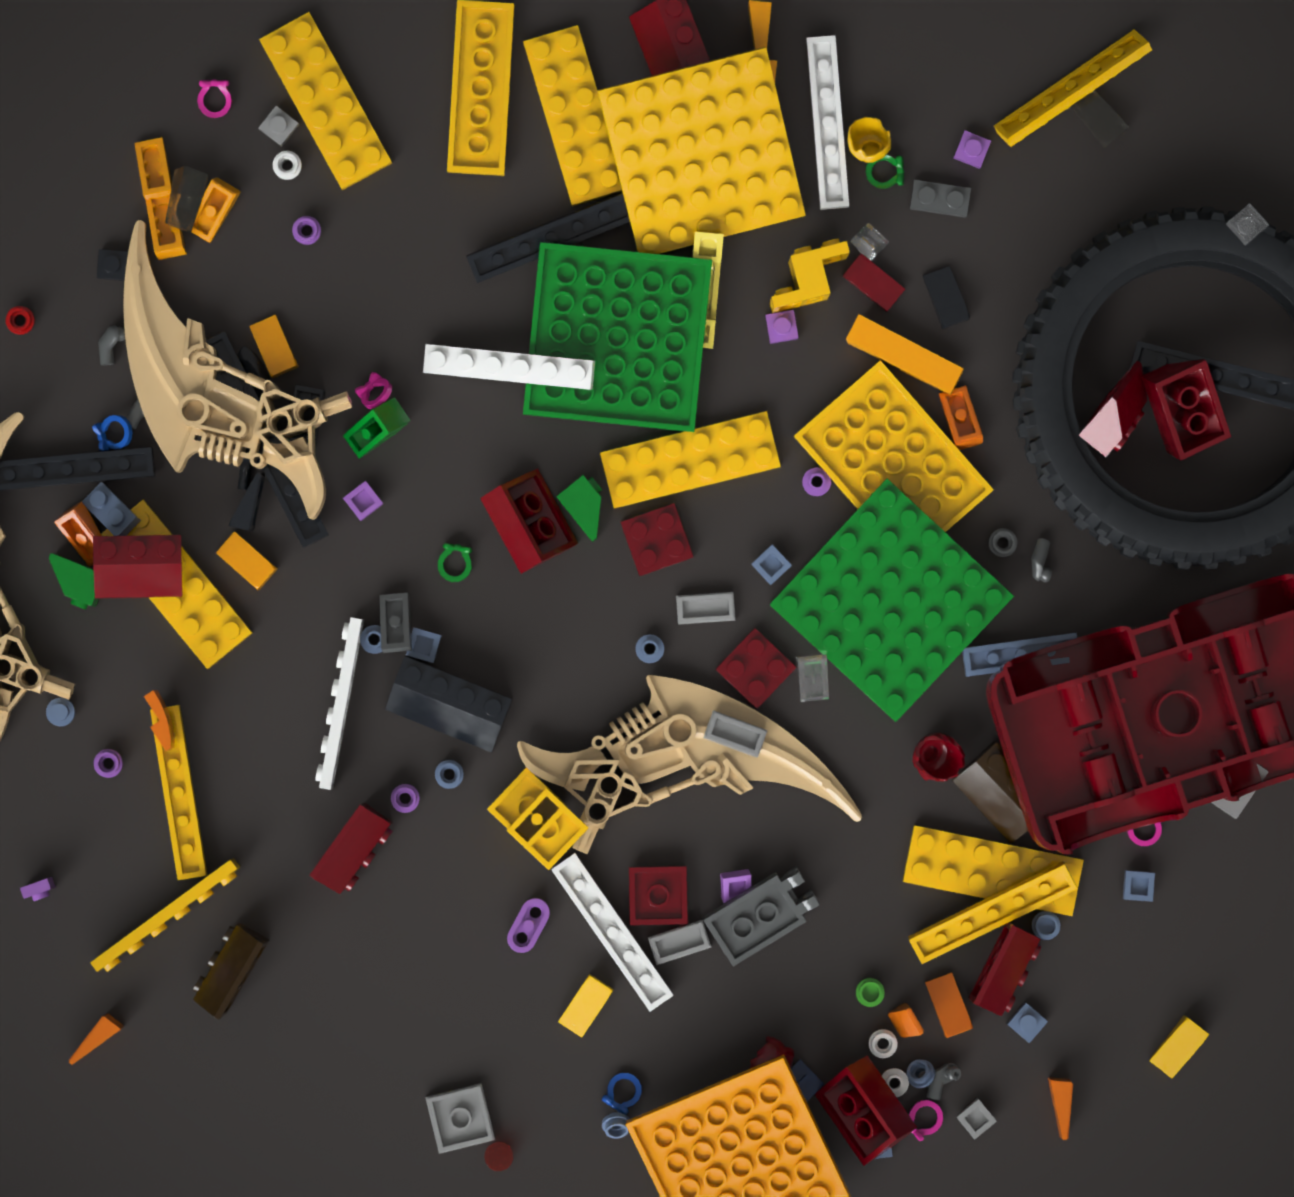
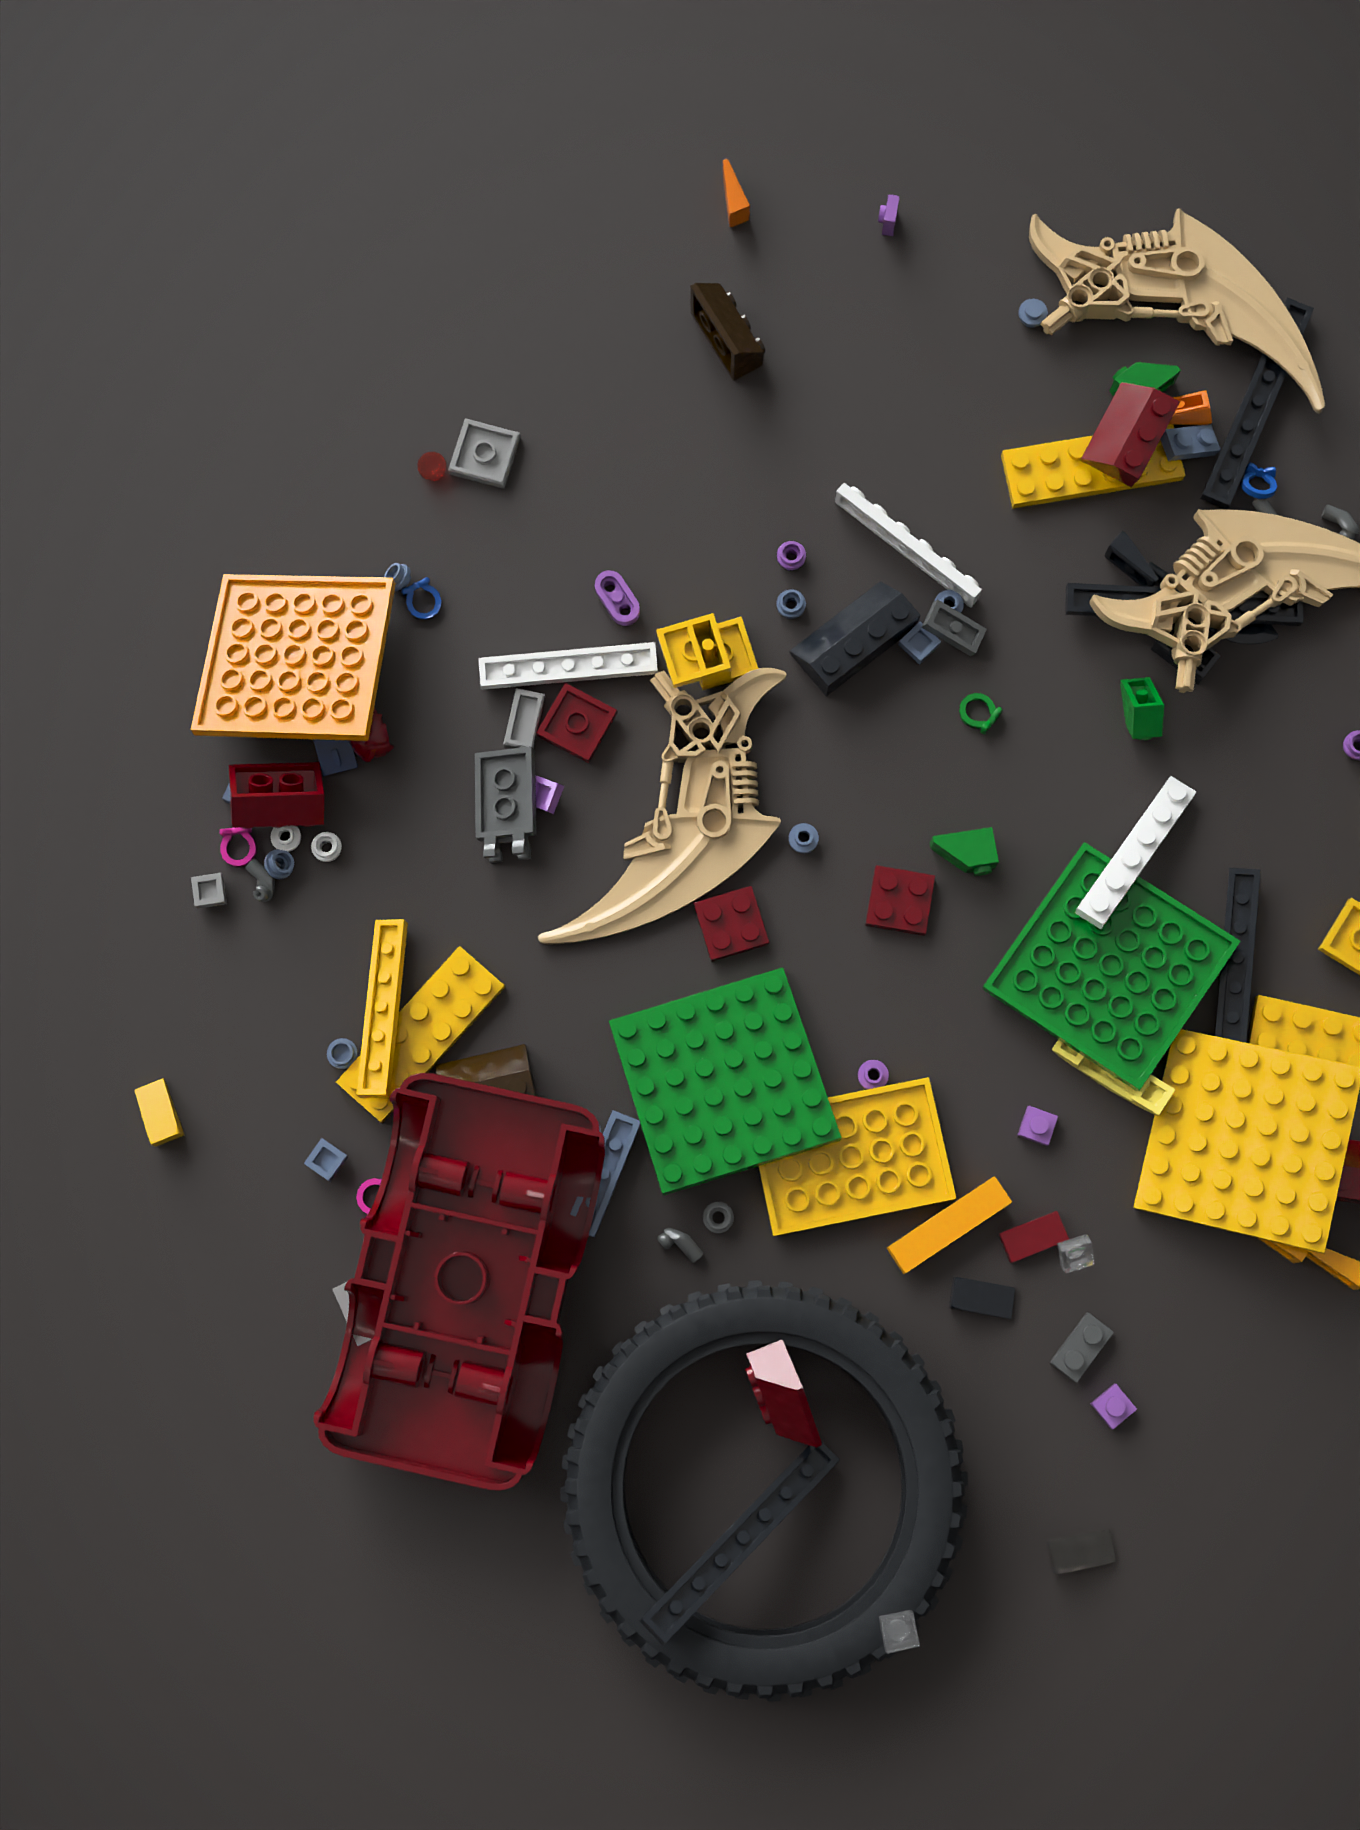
camera: 125 degrees right, 10 degrees down
(99, 763) = (968, 321): medium lavender plate -> none
(163, 728) = (972, 382): orange slope -> none
(176, 909) = (806, 315): yellow plate -> none
(180, 801) = (906, 370): yellow plate -> none
(246, 560) = (1079, 535): light orange slope -> none
(273, 346) = (1263, 659): light orange slope -> none
(352, 849) = (774, 482): dark red slope -> none
(363, 501) = (1080, 660): medium lavender plate -> none
(375, 380) = (1180, 716): dark pink piece -> none
(529, 520) = (982, 794): dark red slope -> none
(585, 1005) = (518, 610): yellow slope -> none
(690, 459) = (957, 972): yellow plate -> none
(705, 608) = (812, 909): light grey tile -> none
(735, 734) = (682, 867): light grey tile -> none
(771, 564) = (819, 989): sand blue plate -> none
(809, 275) = (1075, 1174): yellow bracket -> none
(813, 678) = (693, 968): clear slope -> none
(827, 122) = (1214, 1279): white plate -> none
(868, 139) = (1177, 1308): yellow hair -> none
(870, 992) = (378, 861): bright green plate -> none
(897, 179) = (1122, 1316): green piece -> none
(905, 1021) = (333, 878): orange slope -> none
(938, 757) = (553, 1039): dark red hair -> none
(949, 1005) = (323, 924): orange slope -> none
(961, 418) = (857, 1245): orange slope -> none
(1005, 969) = (323, 990): dark red slope -> none
(1027, 1022) = (265, 986): sand blue plate -> none
(1061, 1095) = (181, 977): orange slope -> none
(1072, 88) = (1124, 1542): yellow plate -> none
(1186, 407) = (749, 1467): dark red slope -> none

